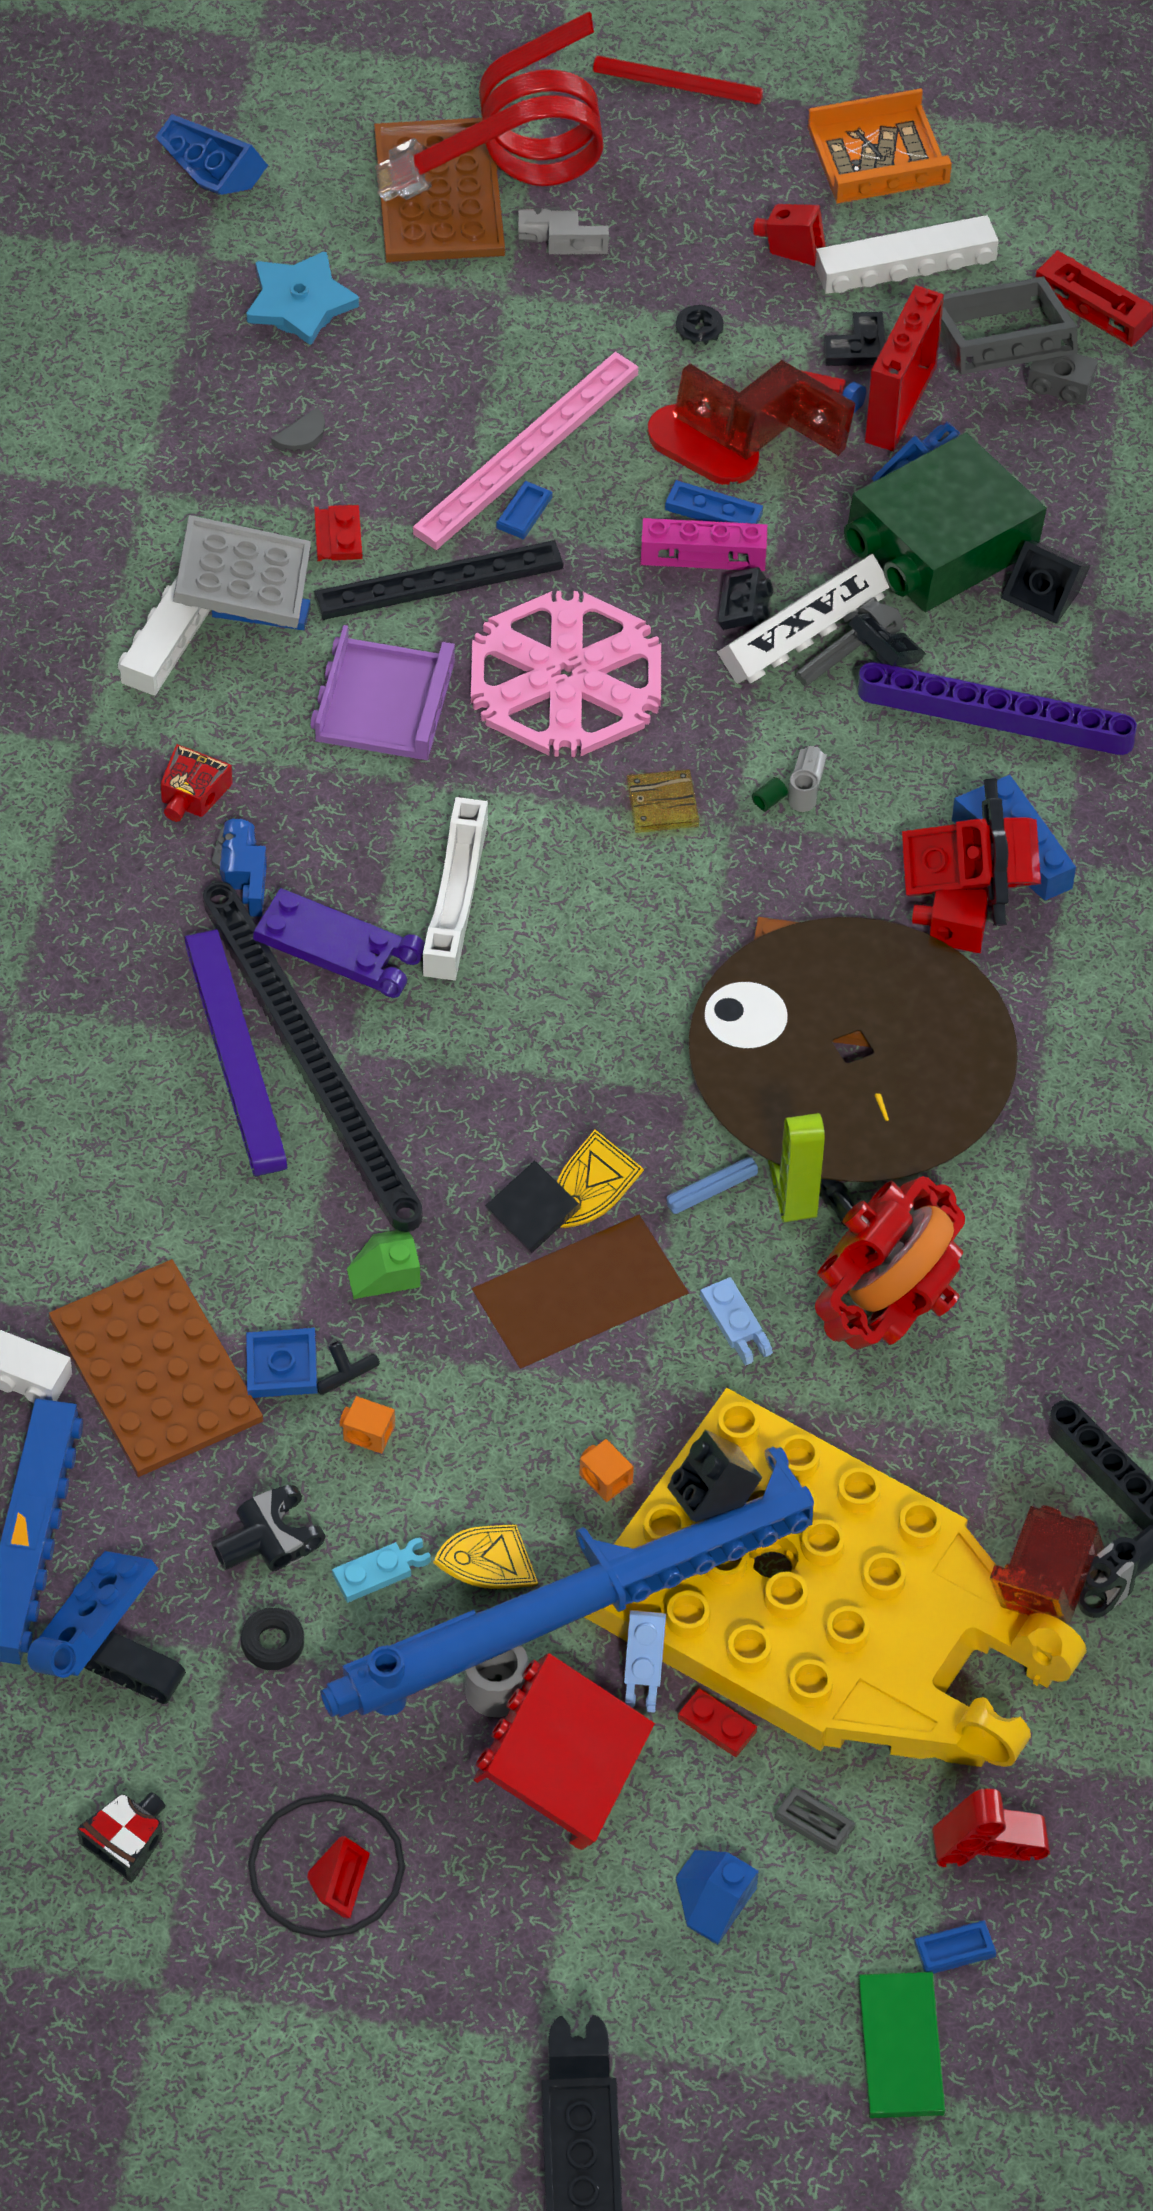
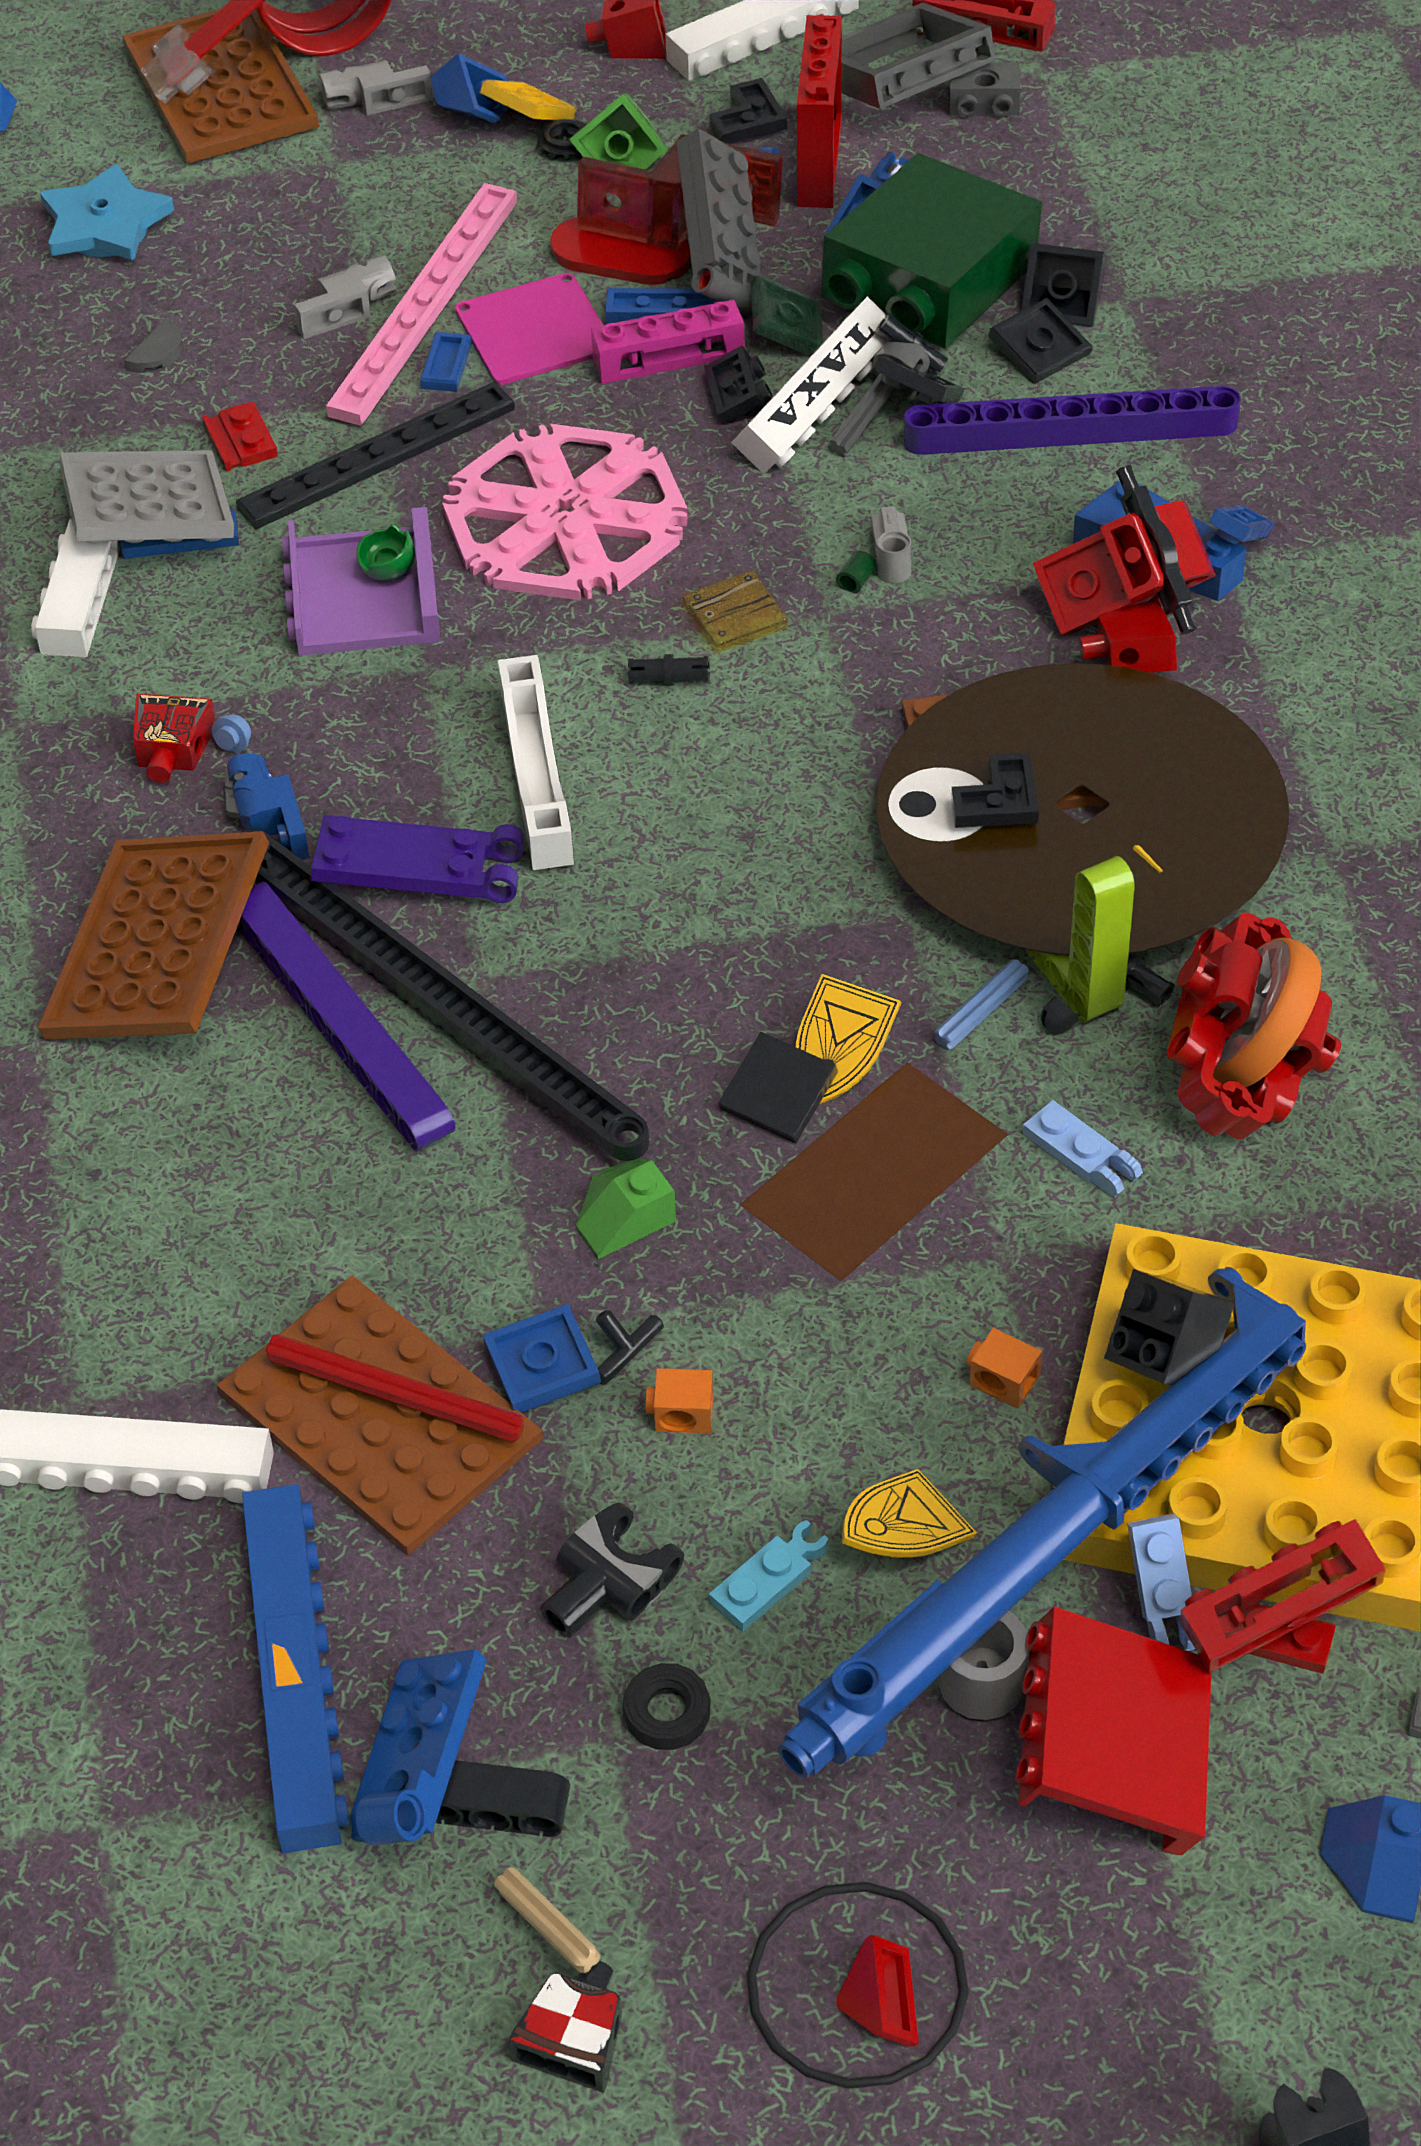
camera: 15 degrees left, 5 degrees down
(122, 950) = (154, 936): none -> dark orange plate
(134, 1758) = (547, 1920): none -> tan axle
(169, 1353) = (395, 1387): none -> red axle
(239, 796) = (231, 733): none -> medium blue plate
(409, 674) = (385, 553): none -> green hair
(465, 428) = (345, 296): none -> light grey plate
(590, 838) = (669, 669): none -> black pin
(604, 496) = (531, 327): none -> dark pink piece
(639, 259) = (459, 87): none -> blue slope
(665, 1710) = (1351, 1556): none -> red brick
(680, 281) = (527, 100): none -> yellow tile
(742, 339) = (621, 136): none -> bright green slope
(763, 1212) = (1057, 1017): none -> black hinge
(780, 452) = (719, 219): none -> dark grey hinge
(791, 1029) = (1005, 801): none -> black plate
(807, 548) = (786, 315): none -> clear green tile
(889, 596) = (894, 331): none -> black pin
(1004, 627) = (1040, 341): none -> black tile
(1082, 843) = (1240, 524): none -> blue plate

